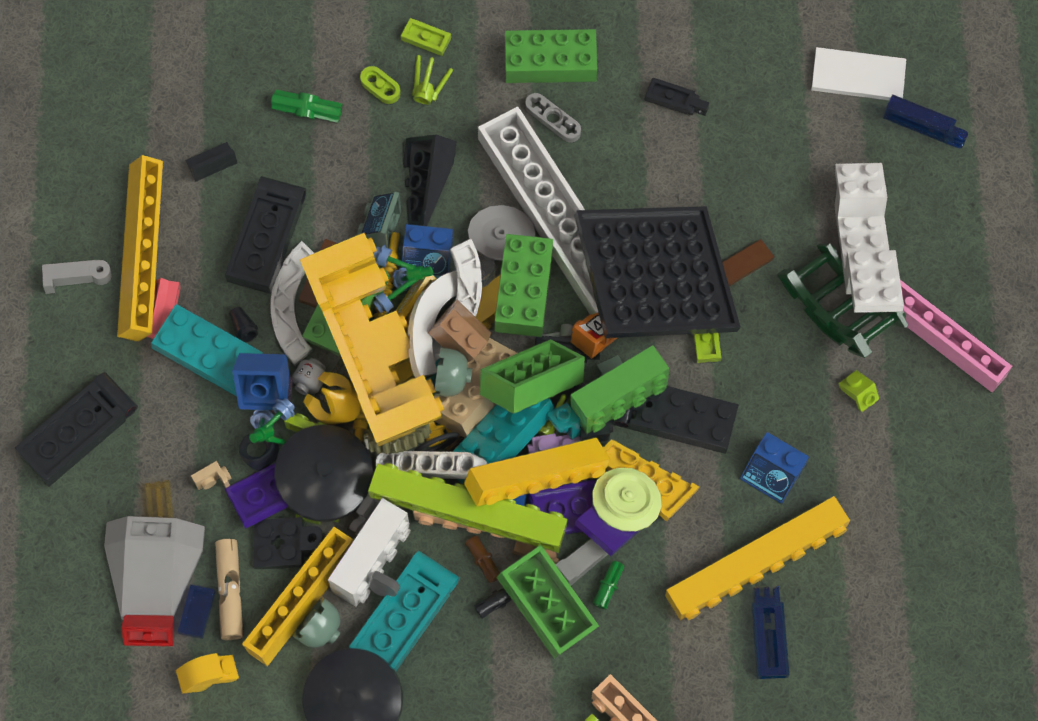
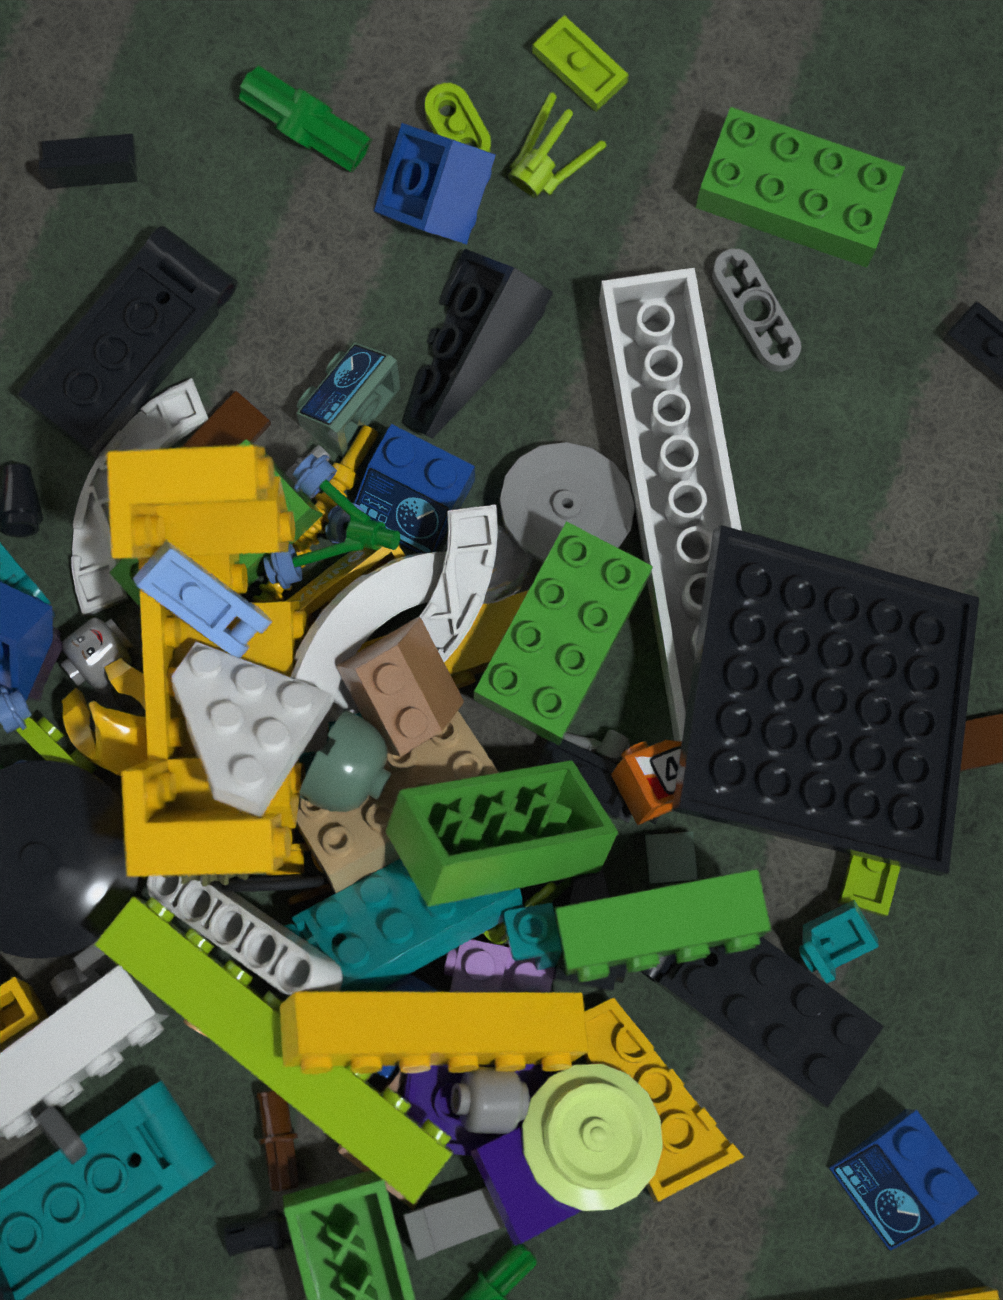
camera: 20 degrees right, 10 degrees up
(358, 319) = (201, 599): none -> light blue plate
(380, 112) = (434, 183): none -> blue slope
(399, 363) = (245, 723): none -> white plate
(574, 498) = (490, 1100): none -> light grey head
(702, 376) = (836, 940): none -> teal bracket

